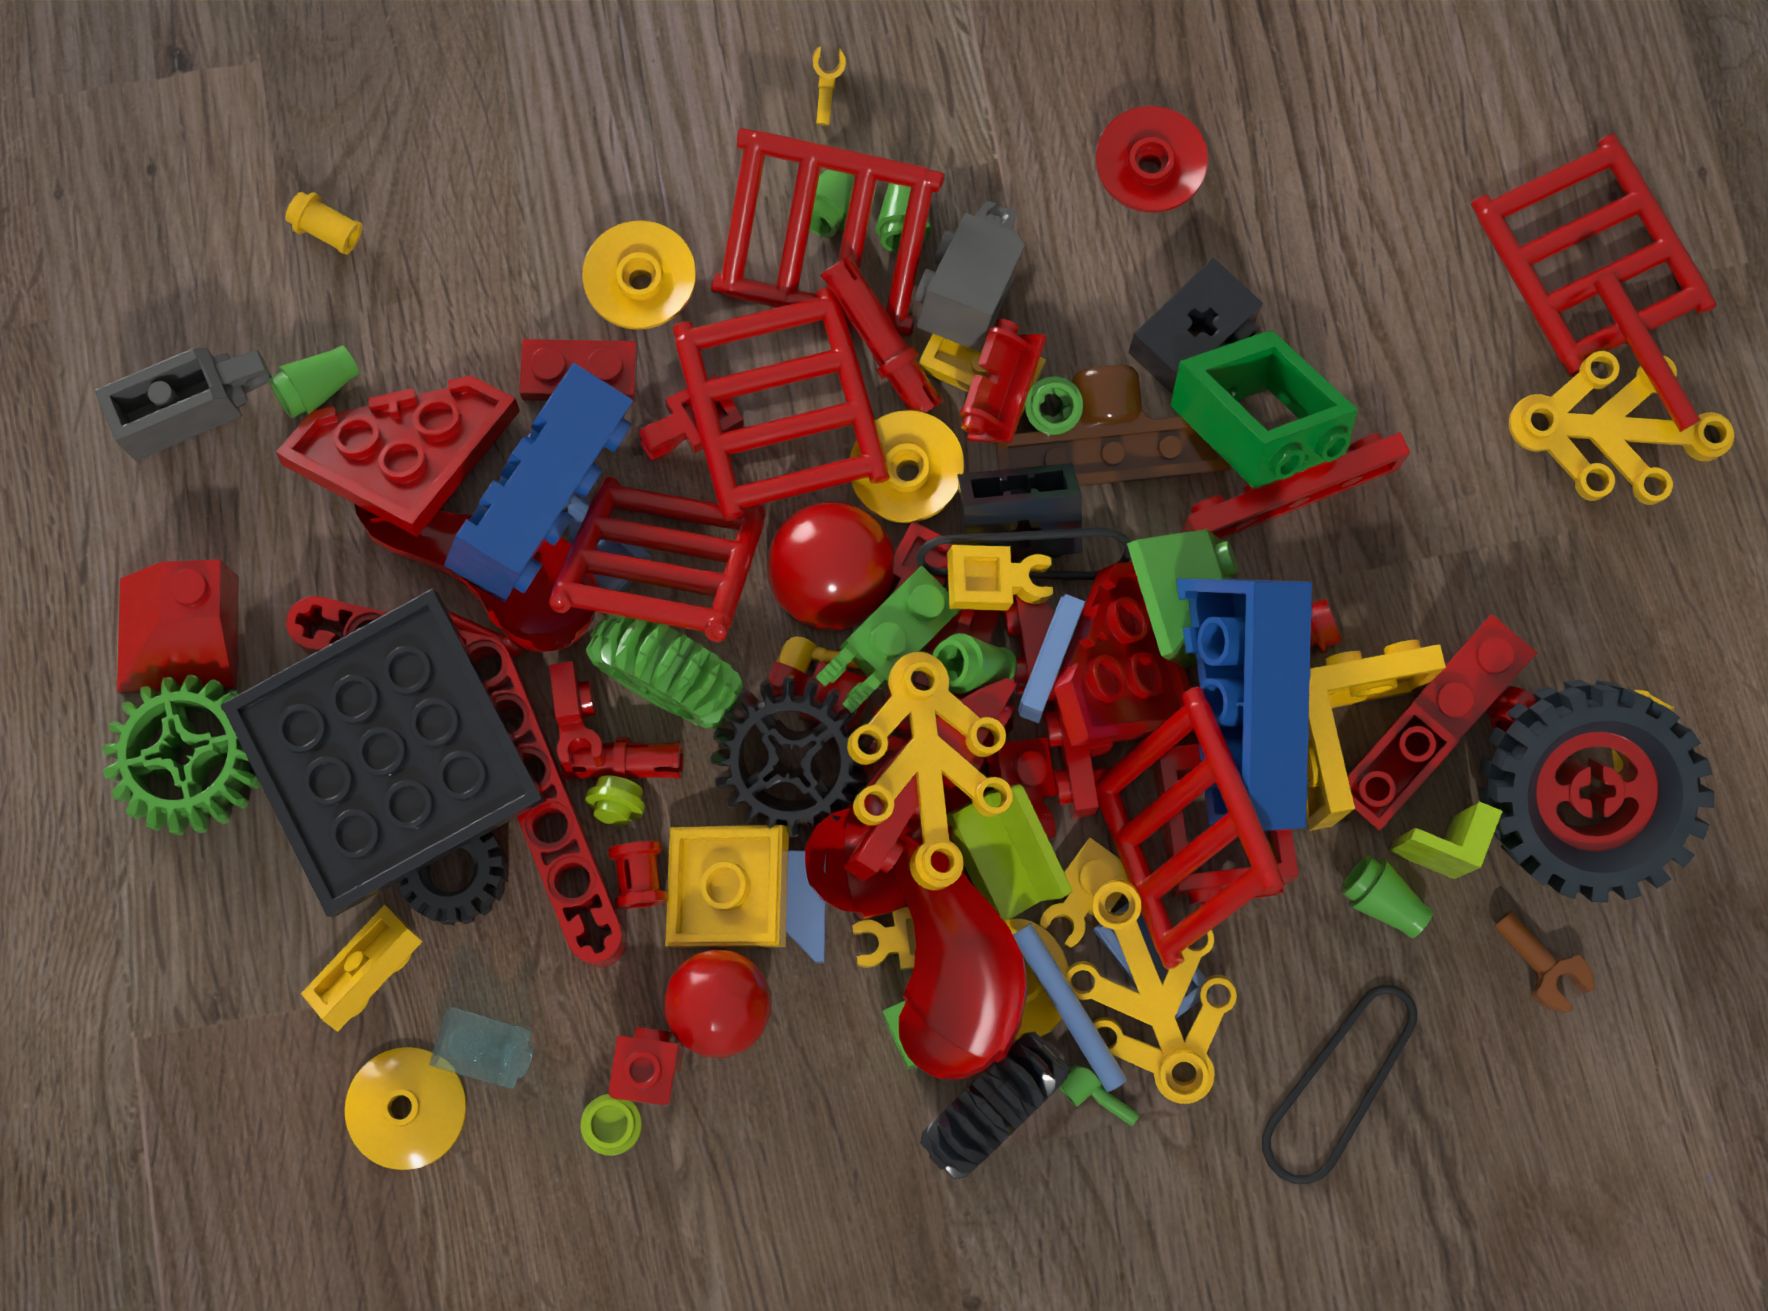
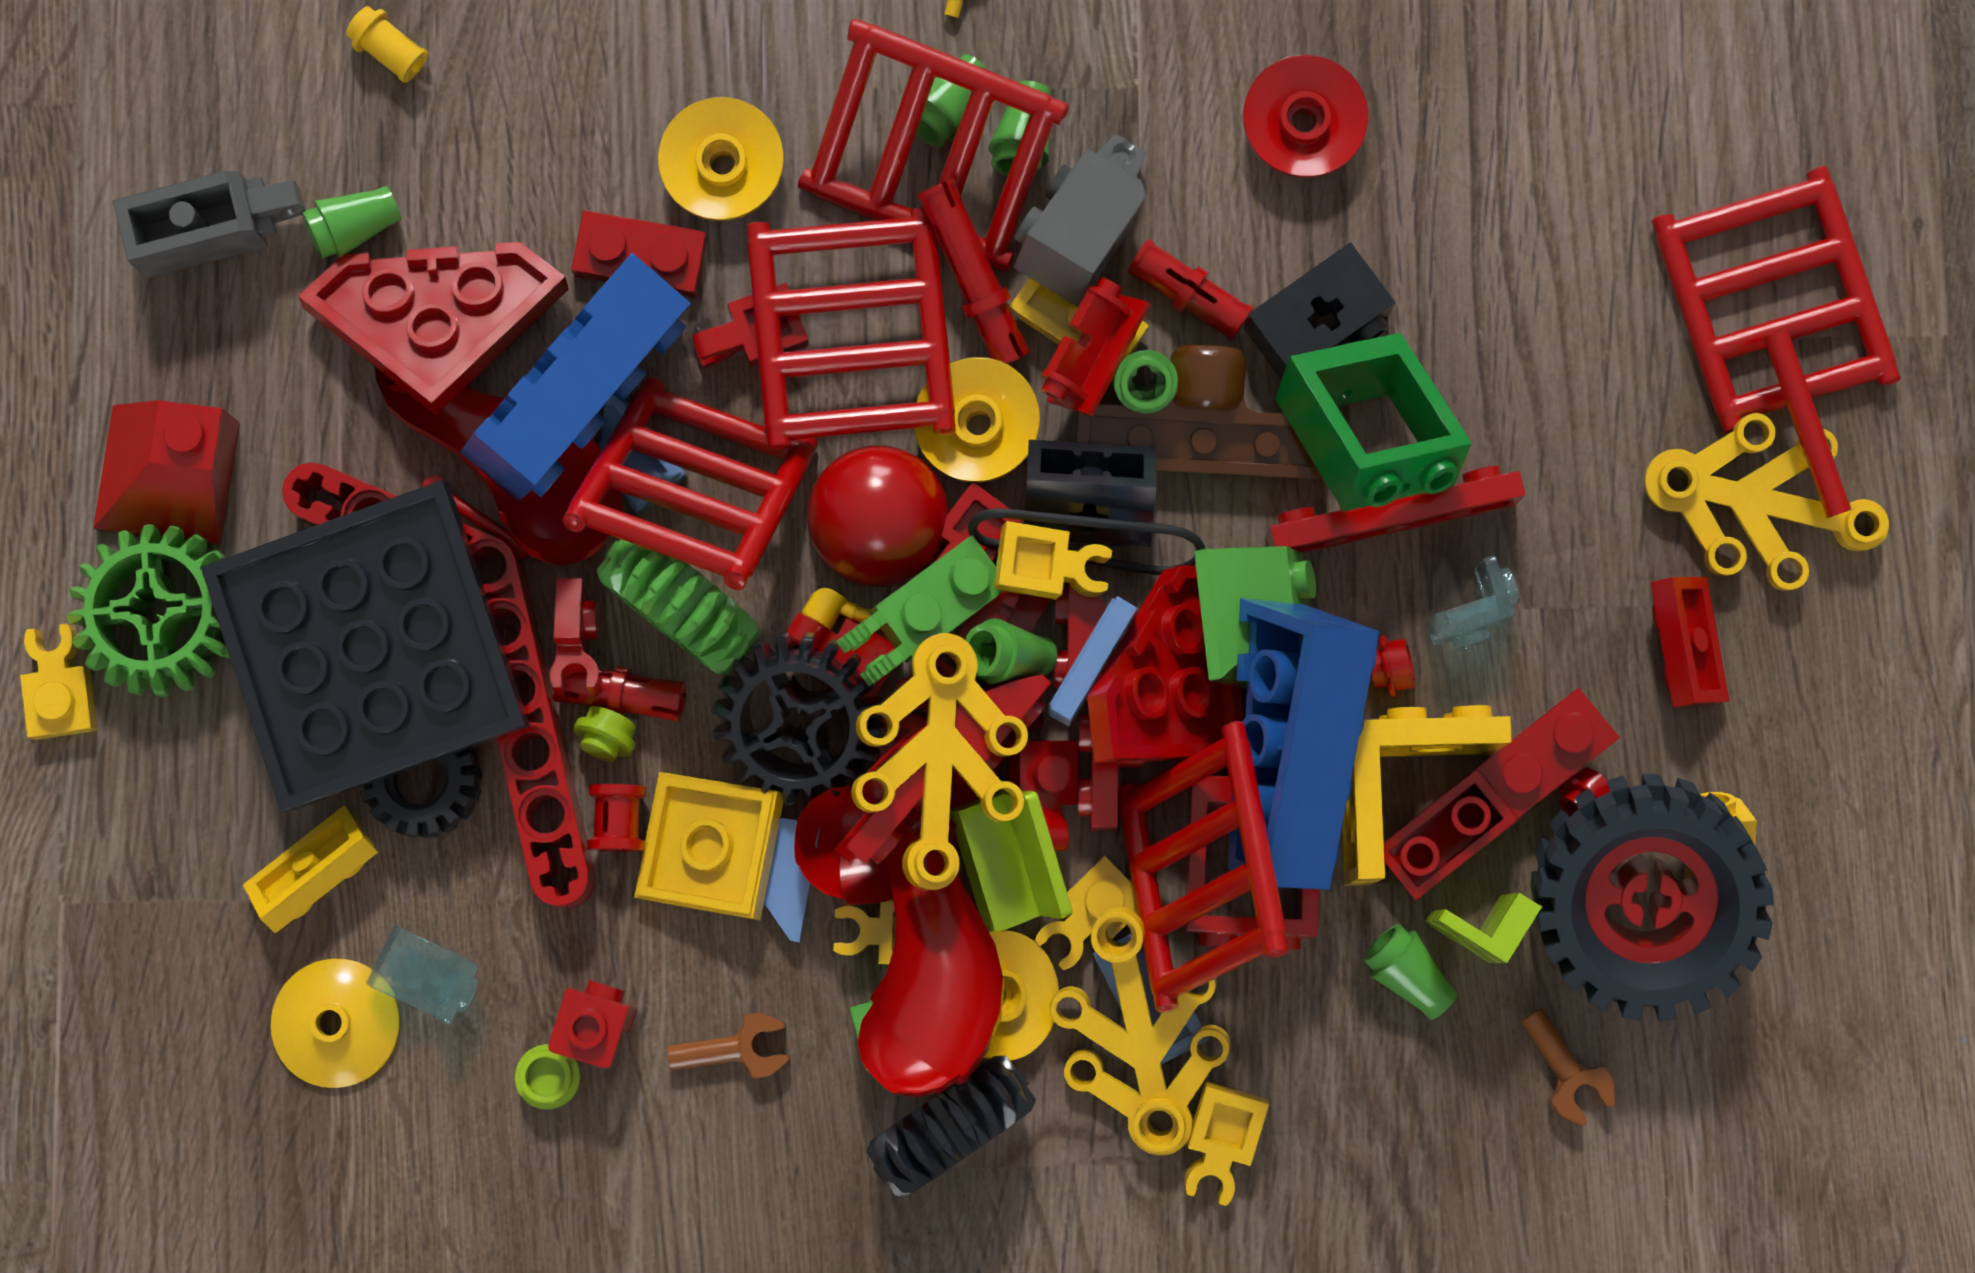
camera: 10 degrees right, 5 degrees up
(106, 847) = (58, 696): none -> yellow plate
(718, 1003) = (678, 969): red piece -> none
(778, 1070) = (732, 1049): none -> dark orange bar
(1069, 1008) = (1049, 1034): medium blue bar -> none
(1076, 324) = (1189, 289): none -> red pin
(1083, 1083) = (1050, 1115): bright green hand -> none
(1245, 1069) = (1225, 1131): none -> yellow plate
(1366, 1102) = (1348, 1185): black piece -> none
(1381, 574) = (1470, 622): none -> clear light blue bracket
(1579, 561) = (1689, 642): none -> red plate

